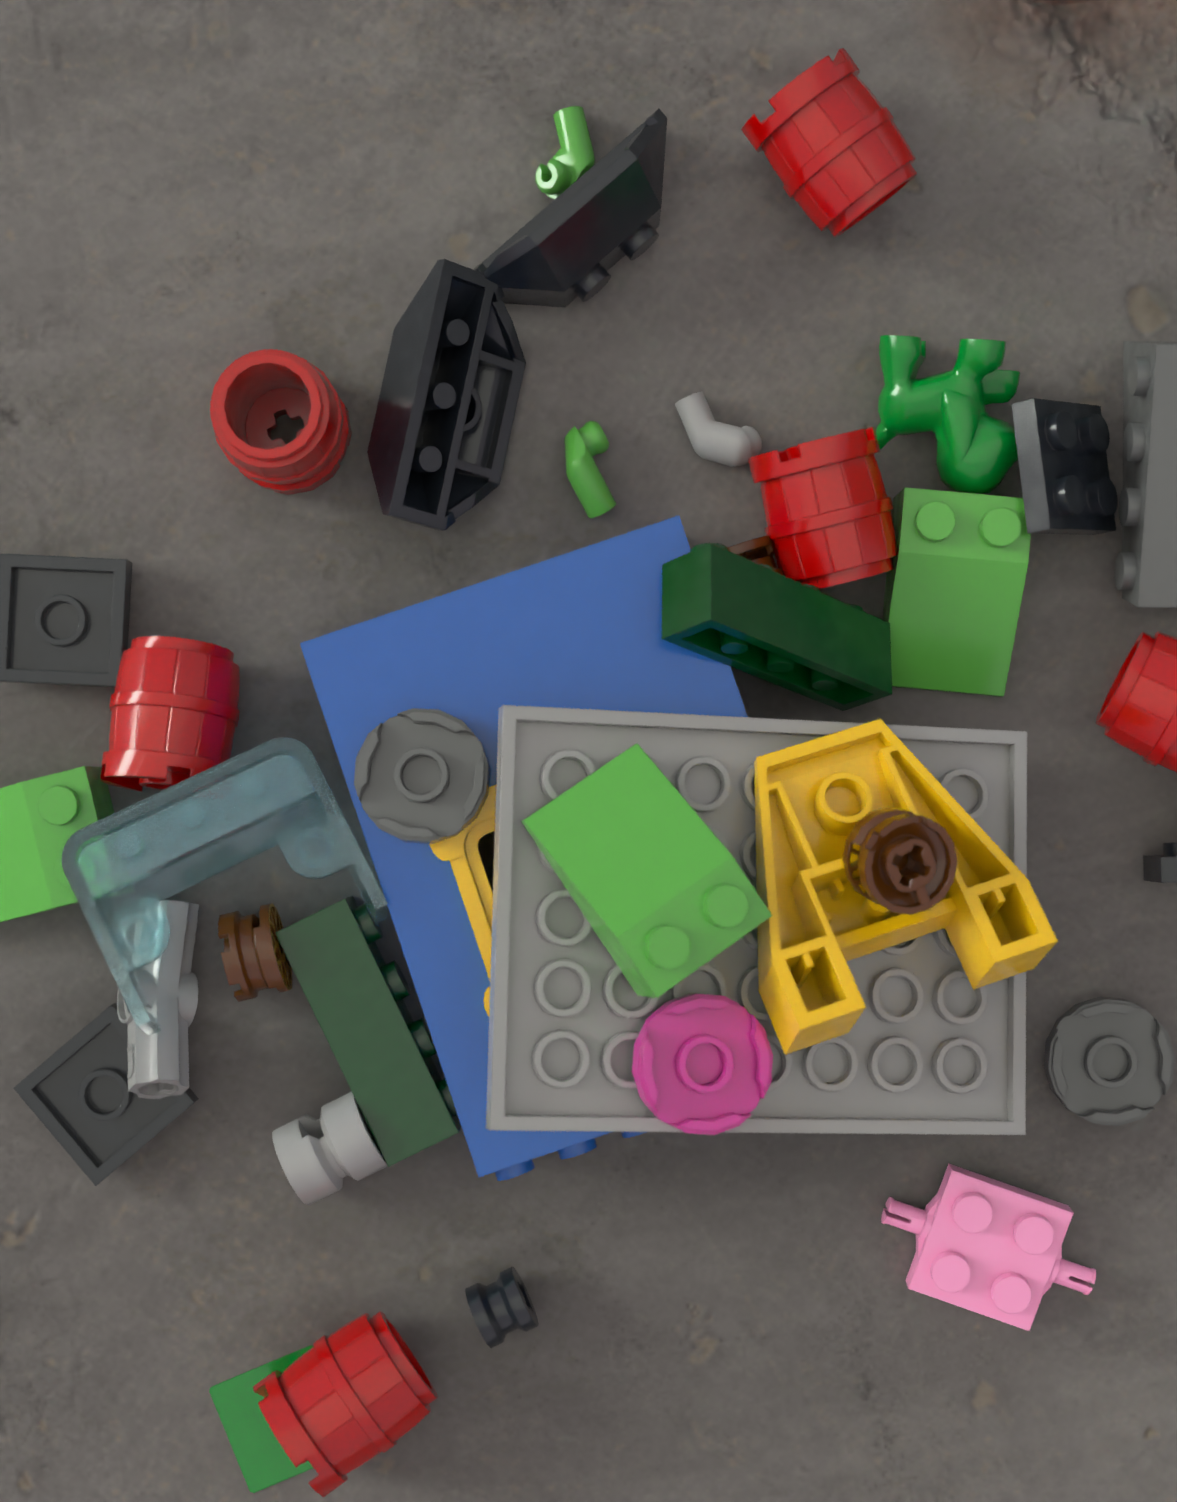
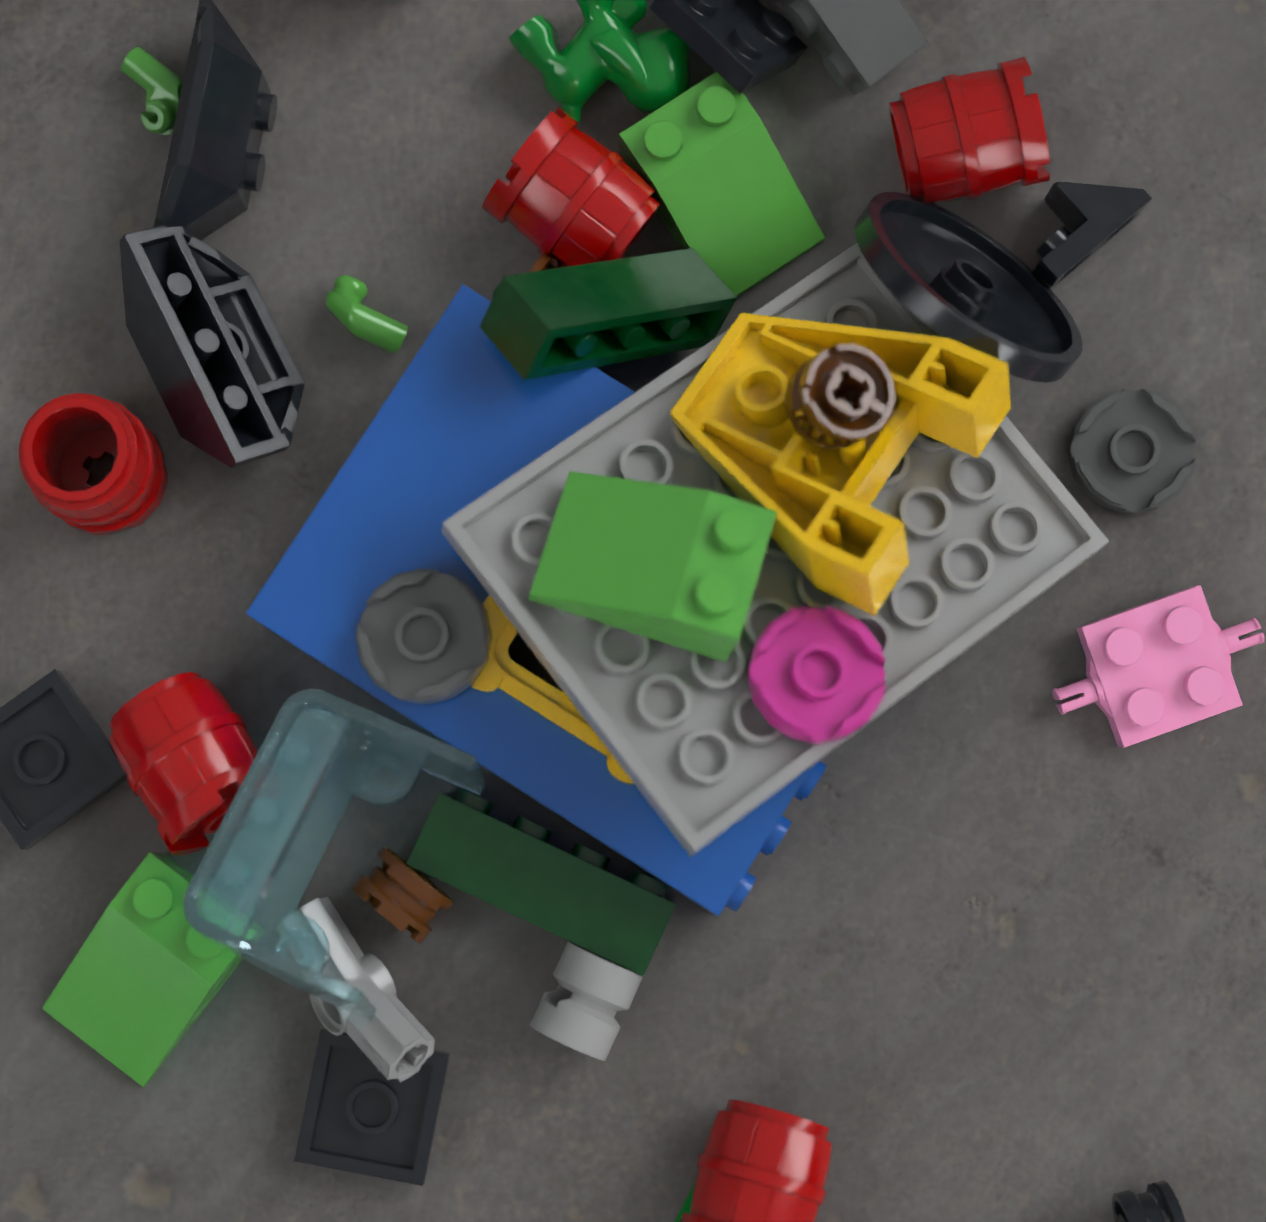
camera: 45 degrees left, 5 degrees down
(501, 1307) = (821, 1019): black wheel -> none
(714, 439) = (445, 217): light grey arm -> none
(1081, 837) = (967, 286): none -> black dish

